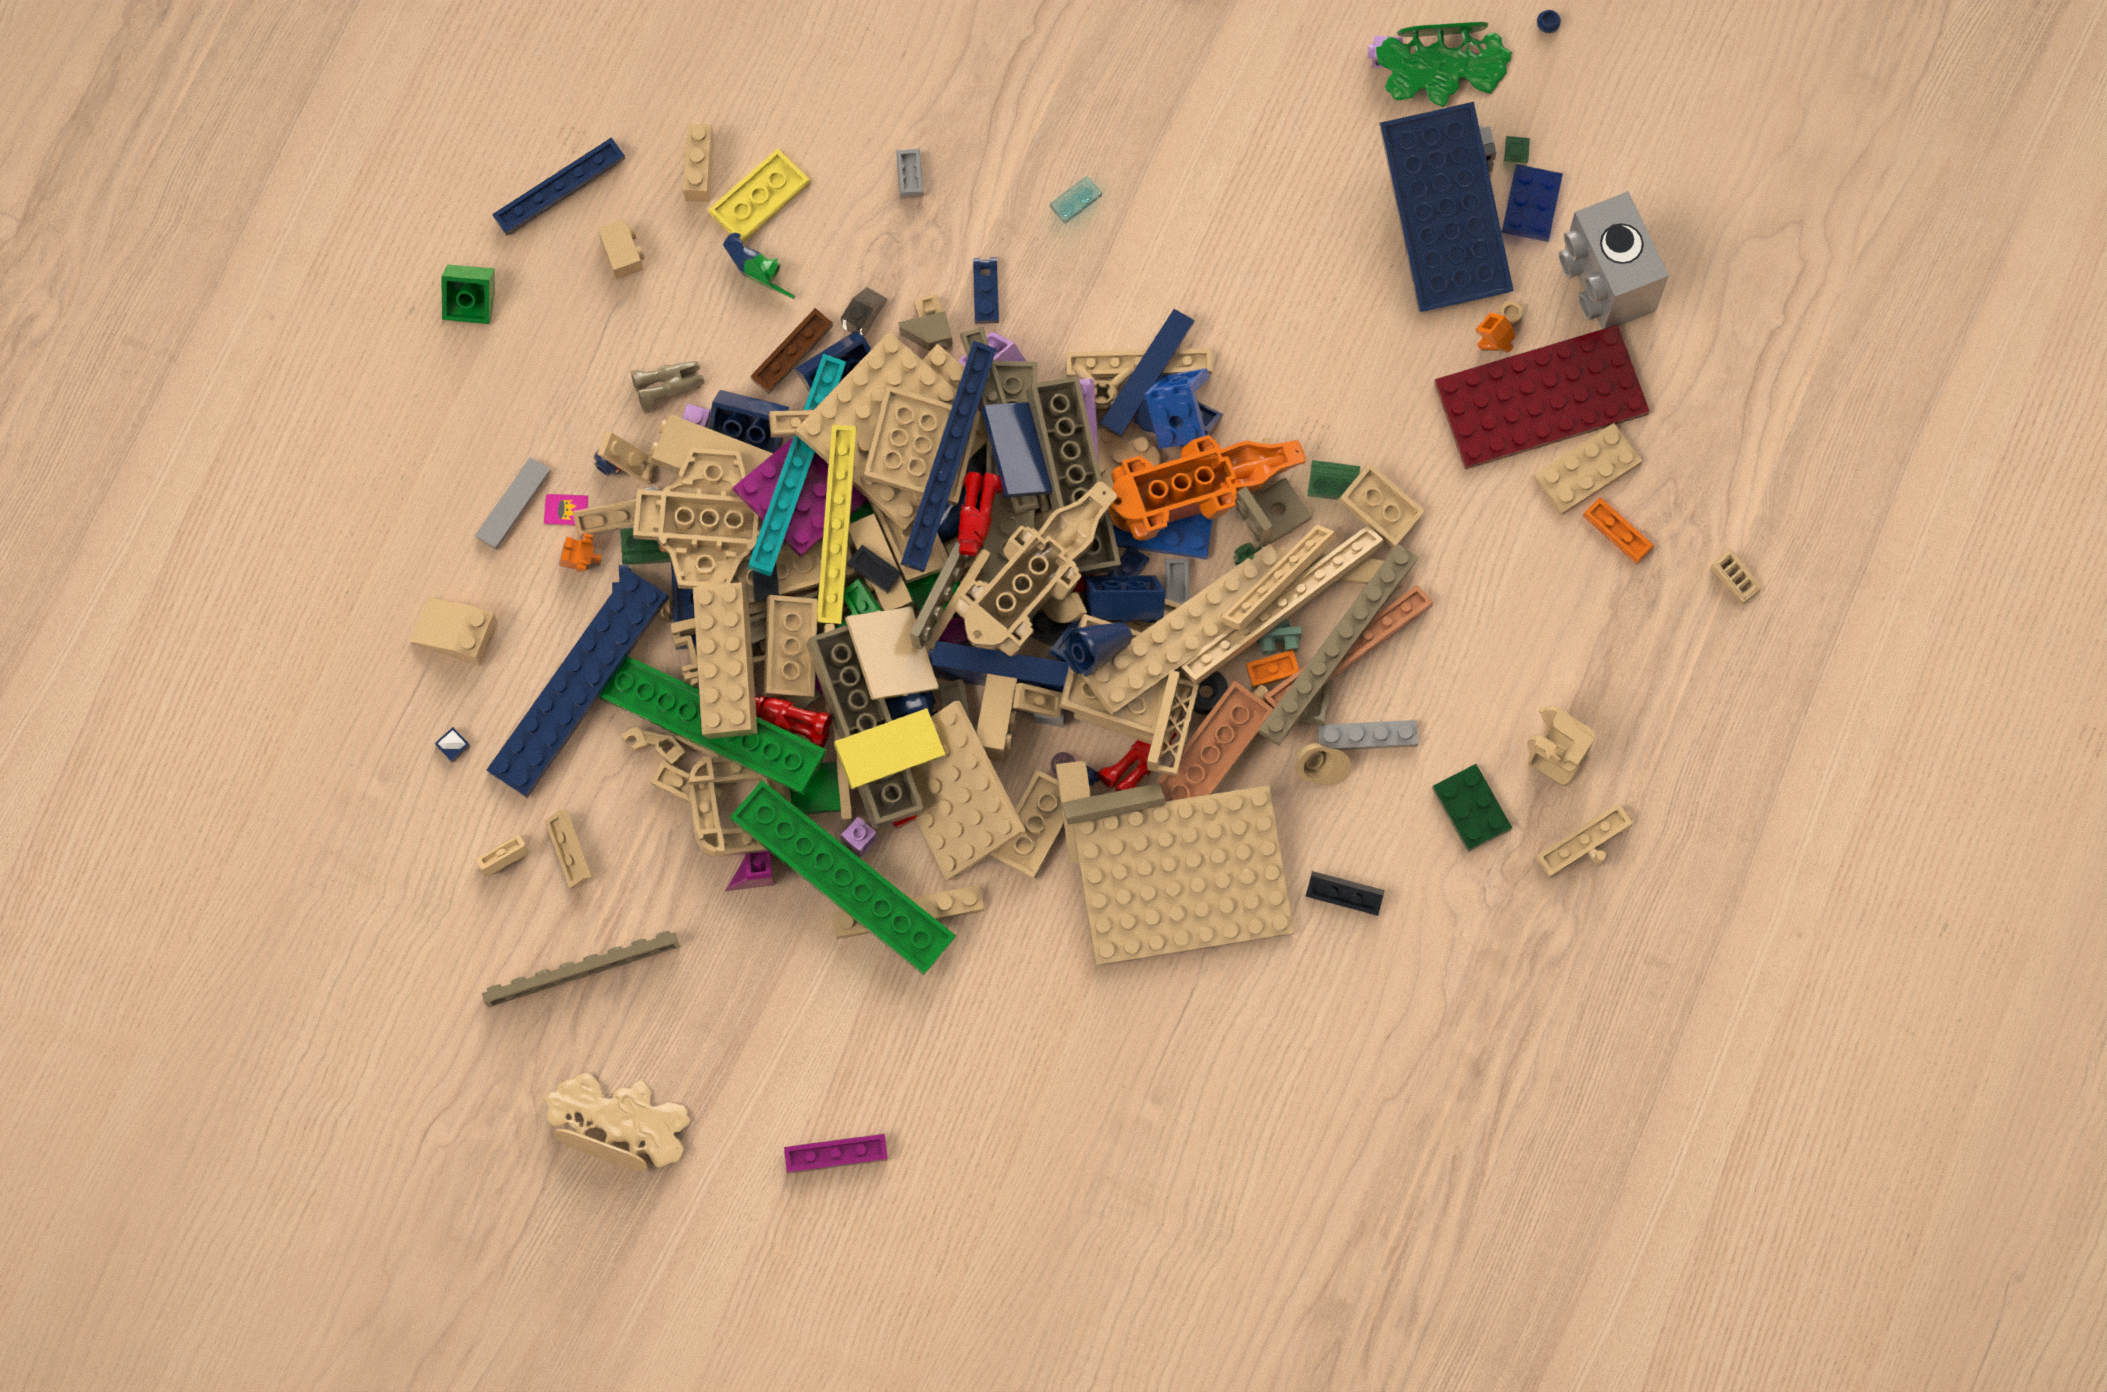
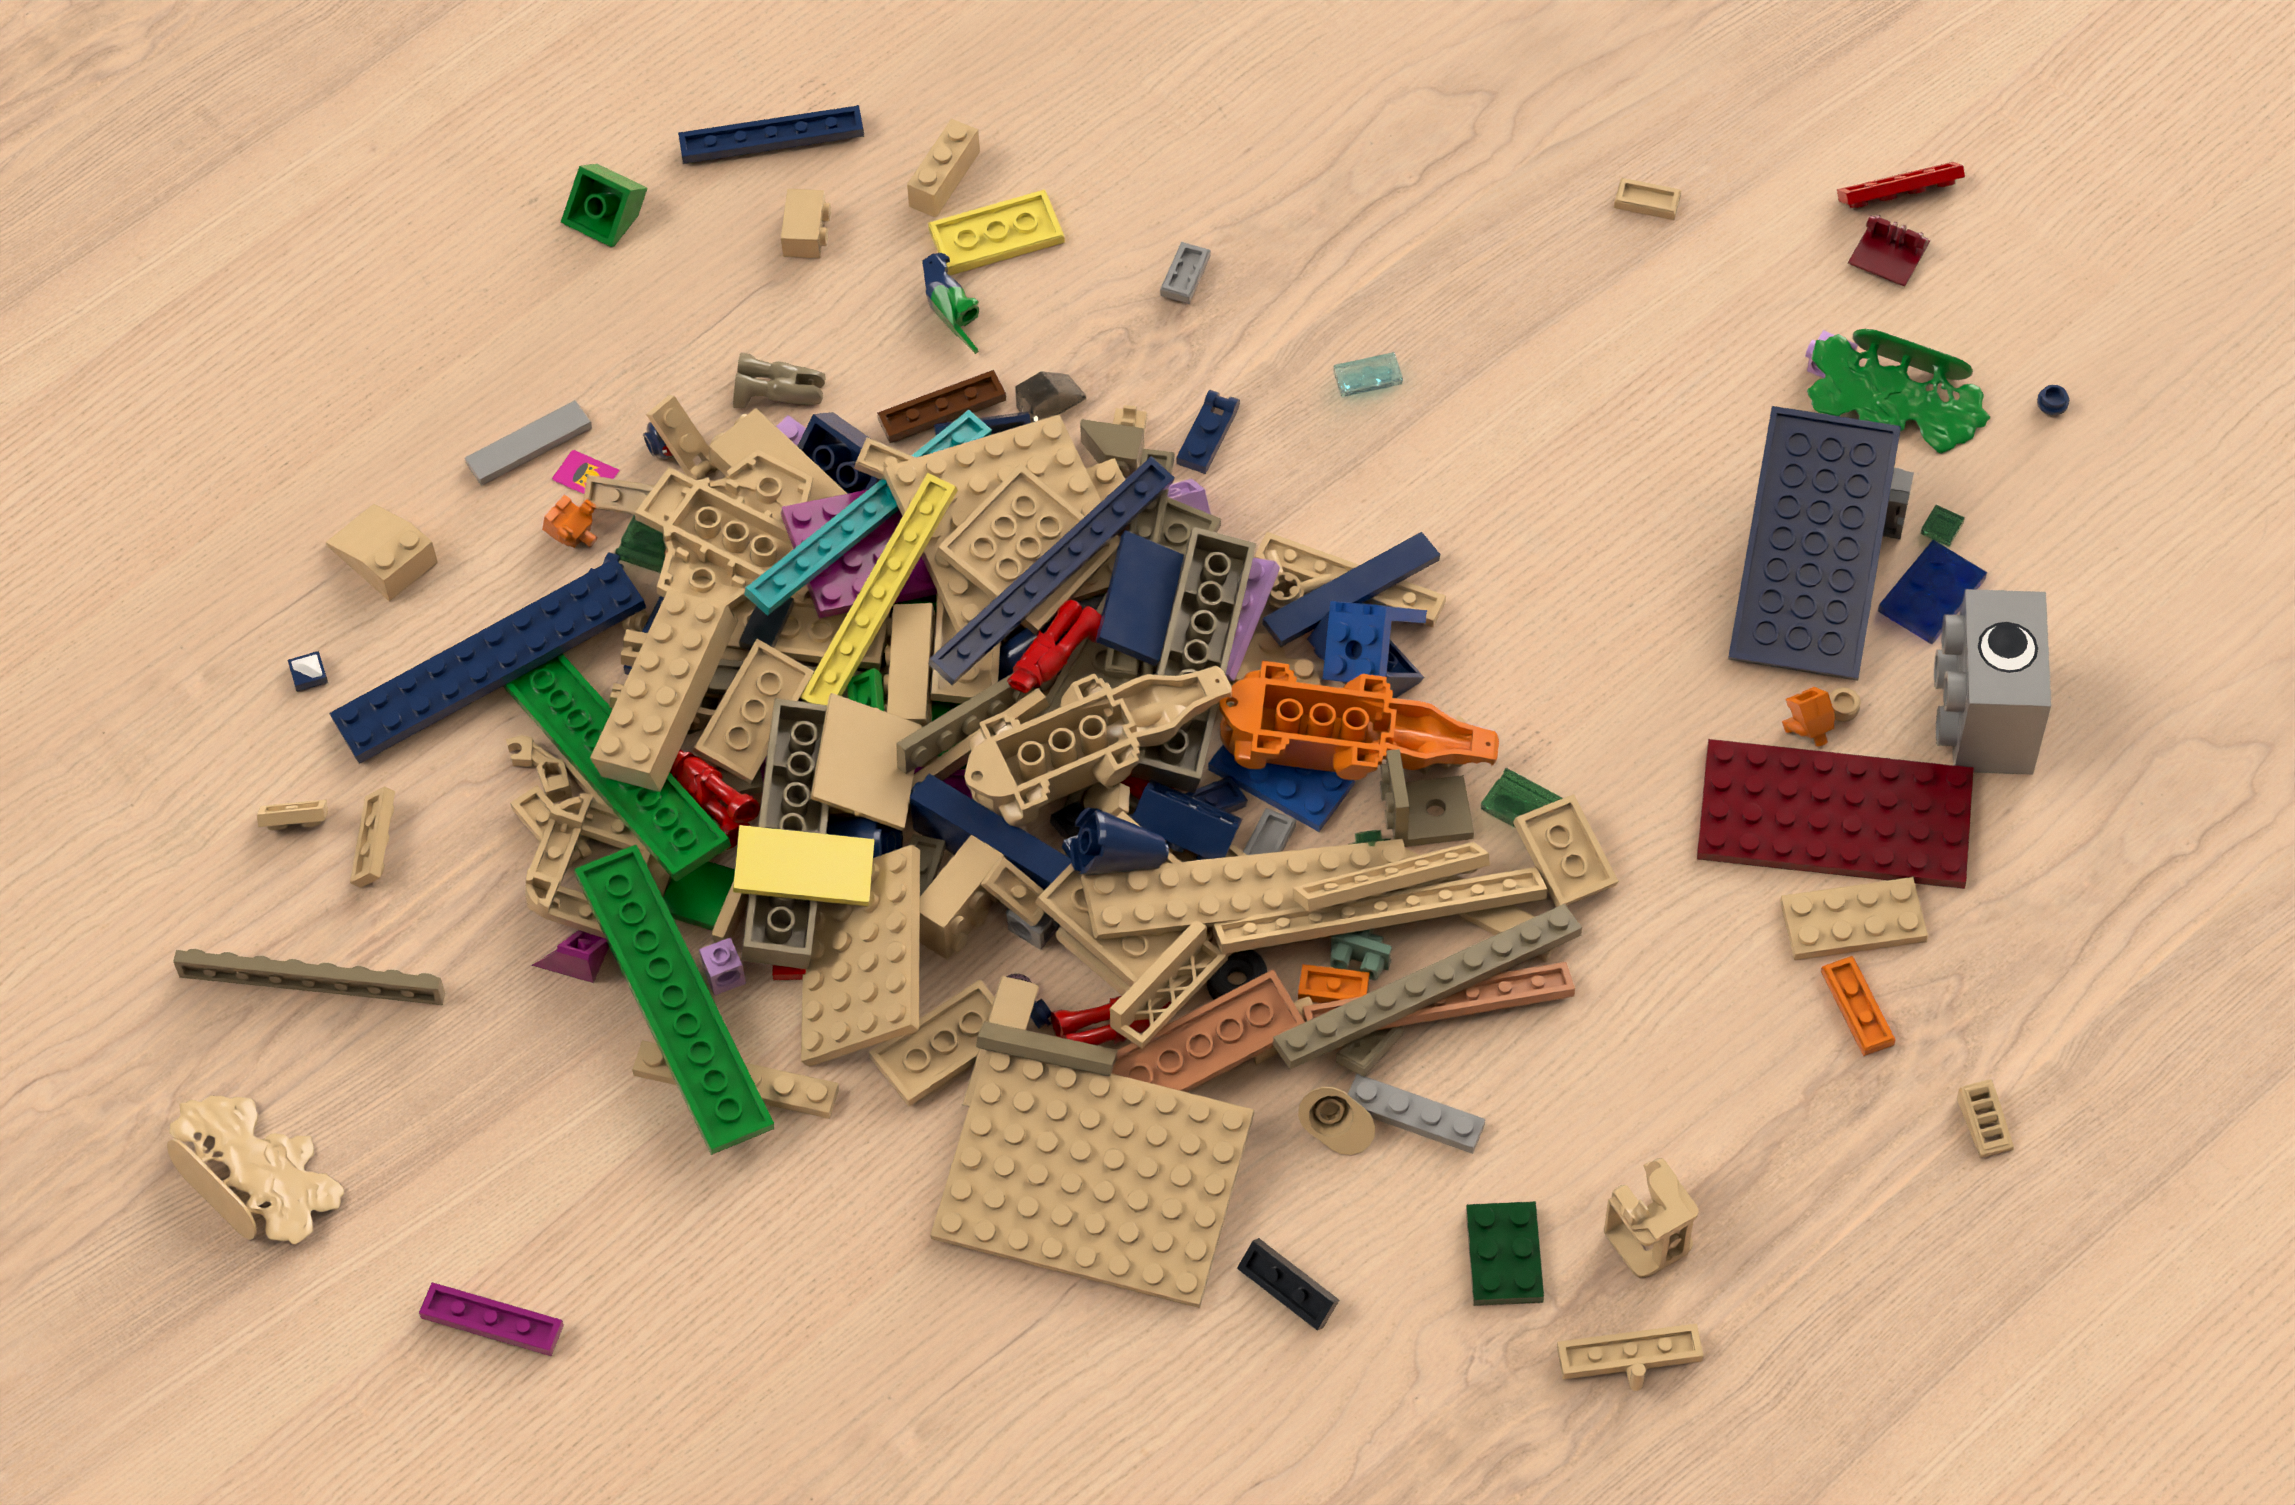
camera: 25 degrees right, 15 degrees down
(874, 569) = (899, 663): black tile -> none

